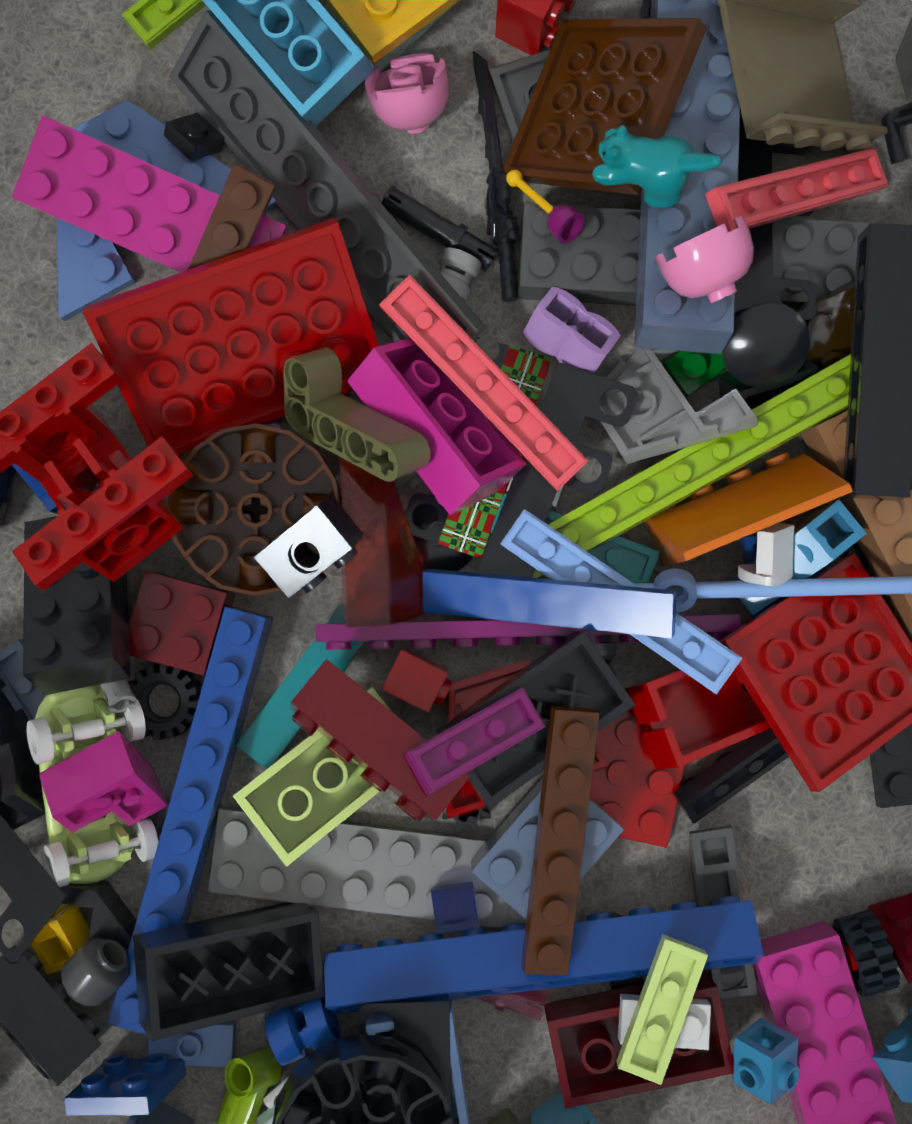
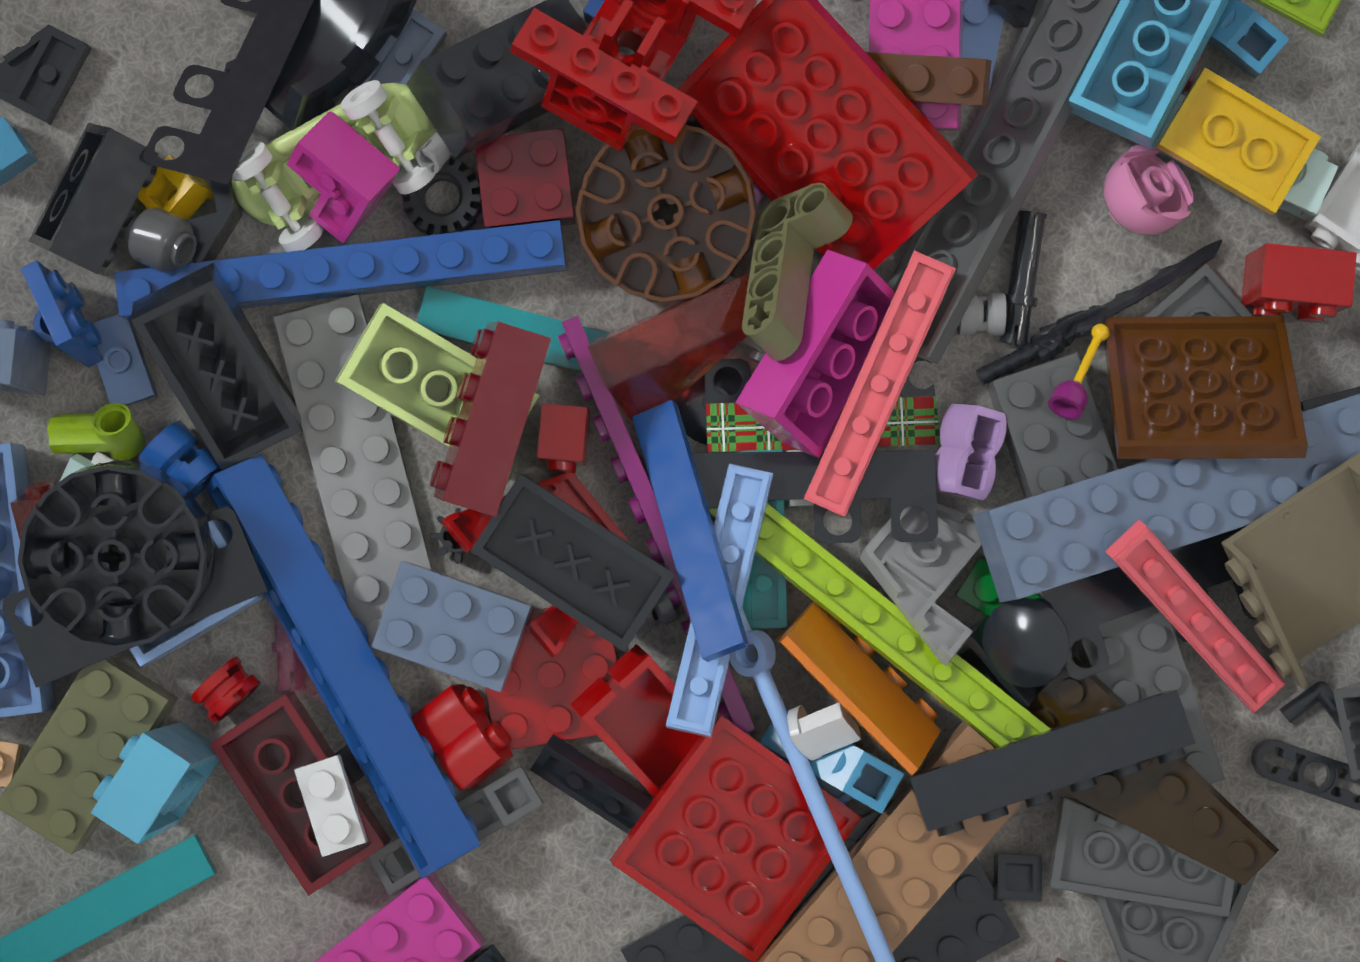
camera: 65 degrees right, 0 degrees up
(323, 526) = (674, 286): brick -> none
(454, 907) = (356, 563): clear blue tile -> none
(474, 741) = (530, 508): magenta tile -> none
(519, 1068) = (225, 690): none -> red wheel
(559, 840) = (466, 630): reddish brown plate -> none
(644, 873) = (463, 736): none -> red brick
(654, 164) = (1145, 459): teal animal -> none
(661, 1009) = (346, 790): yellowish green plate -> none
(710, 262) = (1068, 545): bright pink cylinder -> none
(766, 1061) = (332, 917): dark azure brick -> none

